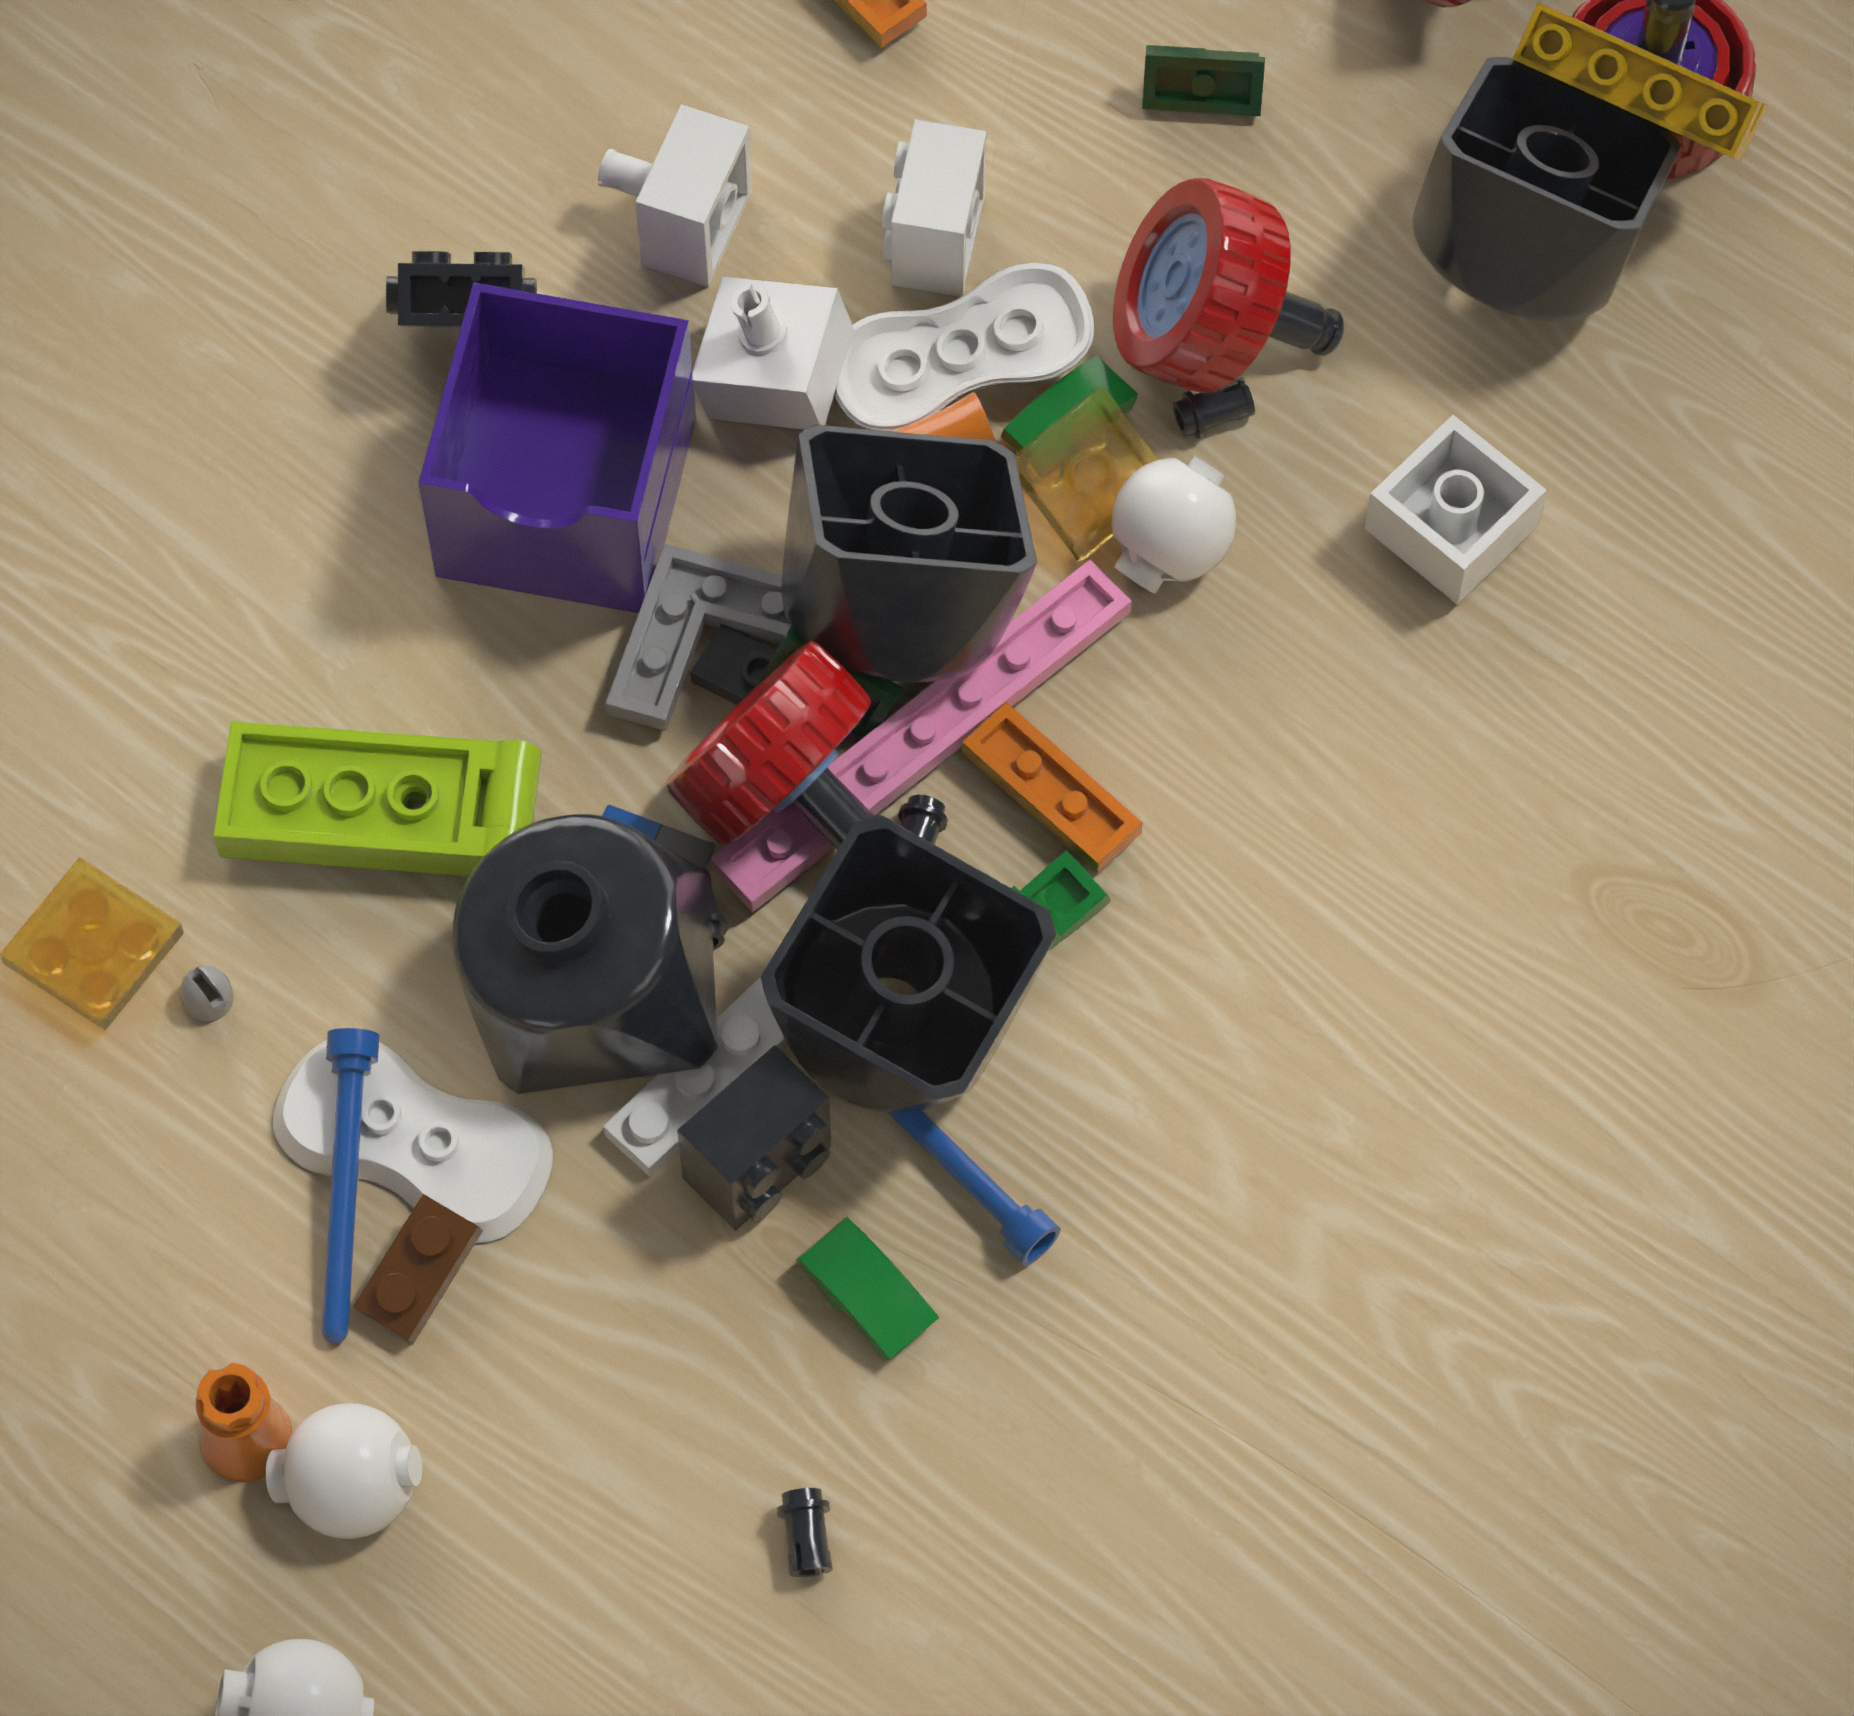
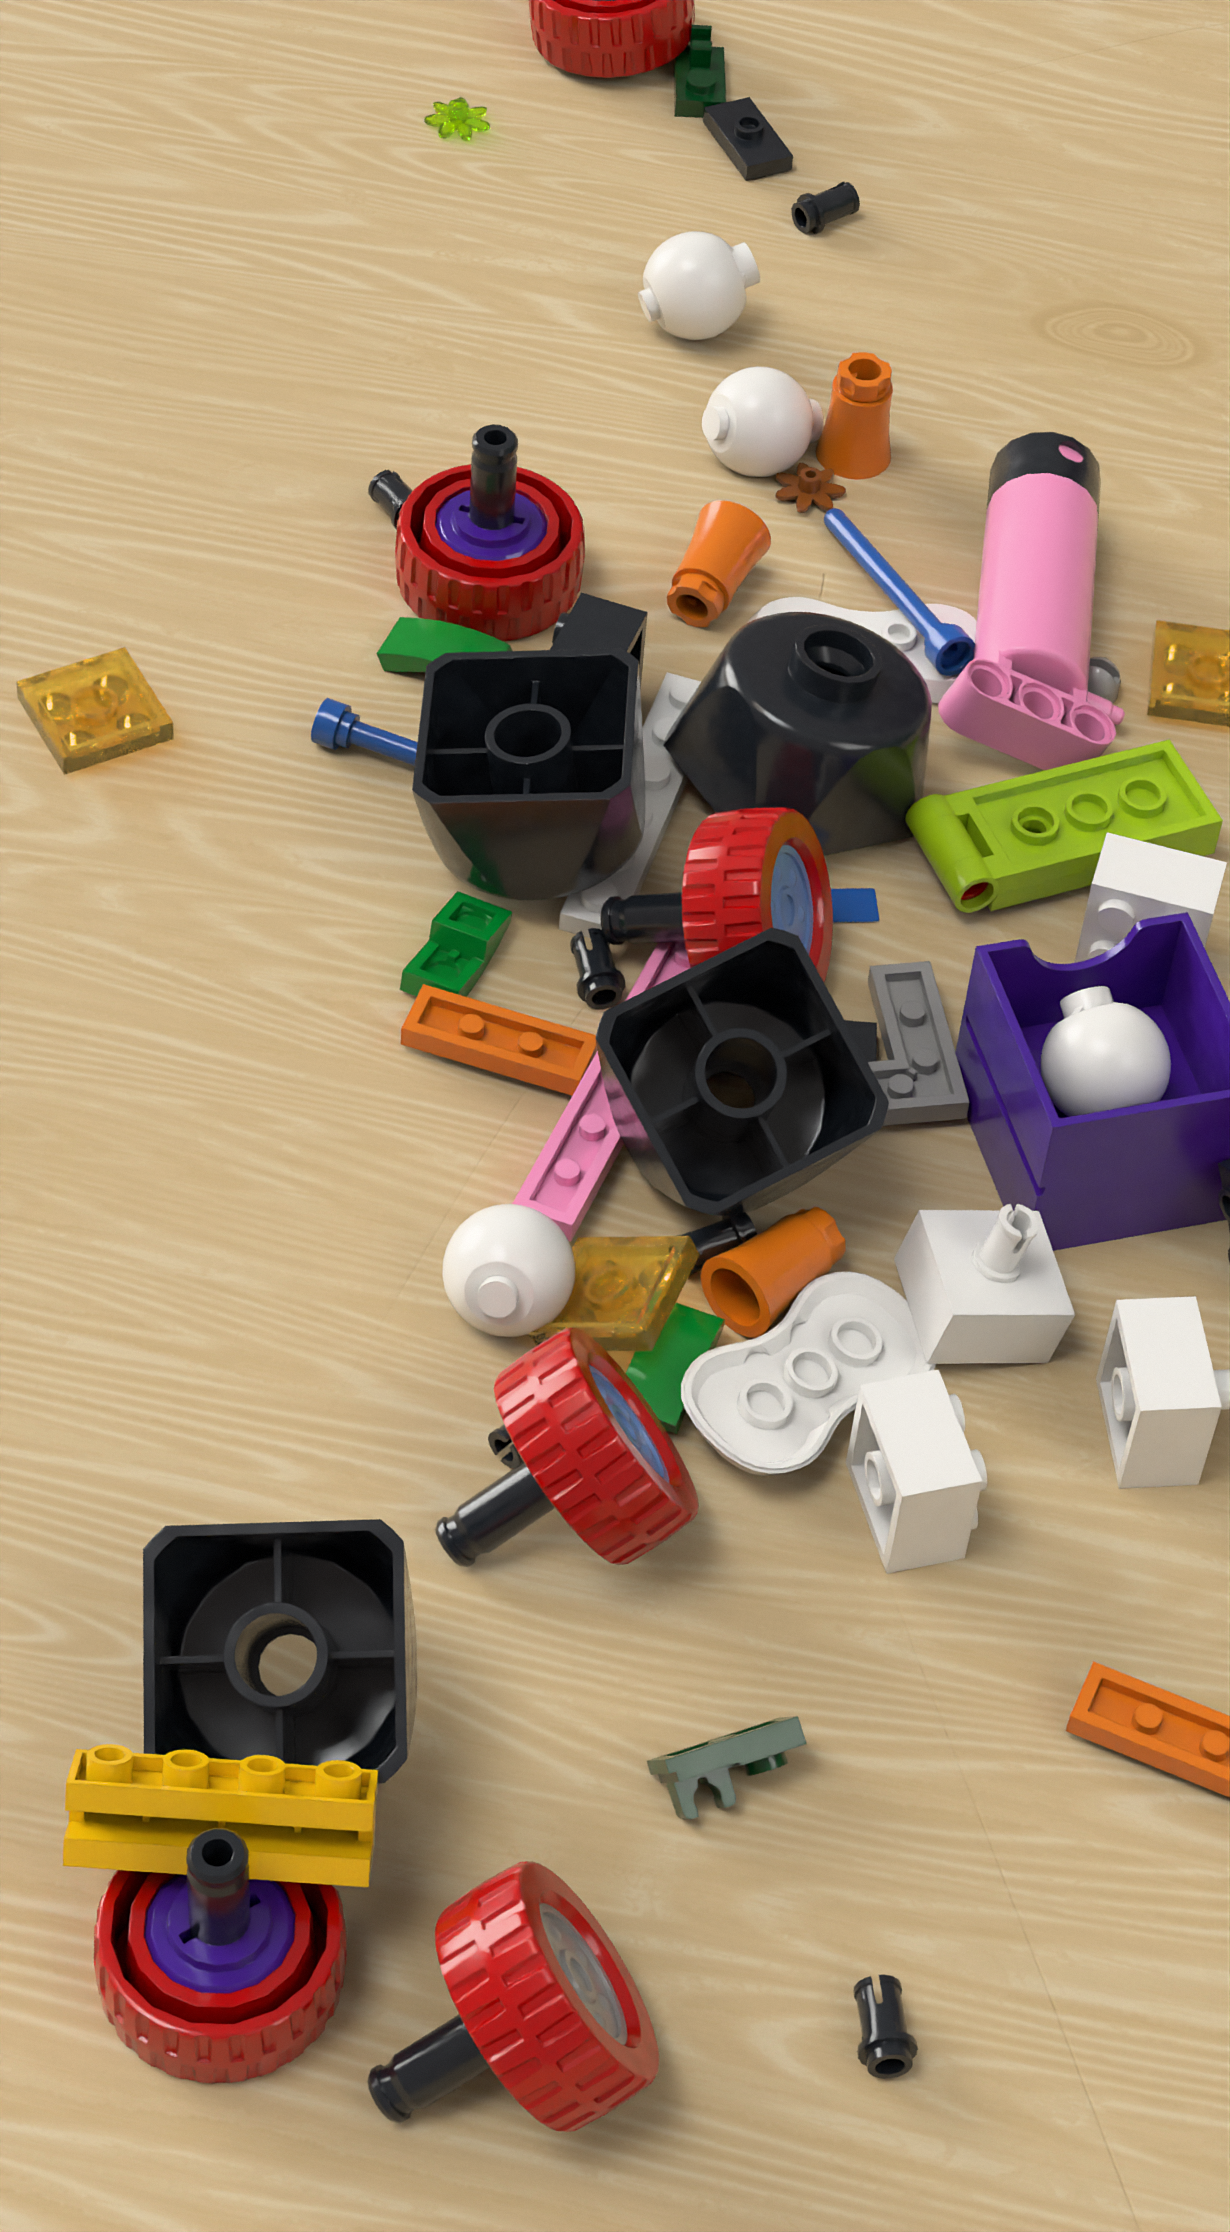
camera: 150 degrees right, 15 degrees down
(227, 1061) = (1036, 610): none -> bright pink piece
(330, 1377) = (809, 486): none -> dark orange plant
(378, 642) = (1146, 882): none -> white brick
(418, 1268) = (799, 560): reddish brown plate -> none
(518, 1282) = (718, 559): none -> orange plant
(566, 430) = (1103, 1055): none -> white brick
(754, 1391) = (490, 544): none -> red wheel
(1270, 1351) = (94, 710): none -> clear yellow plate
(1455, 509) = (235, 1384): white brick -> none

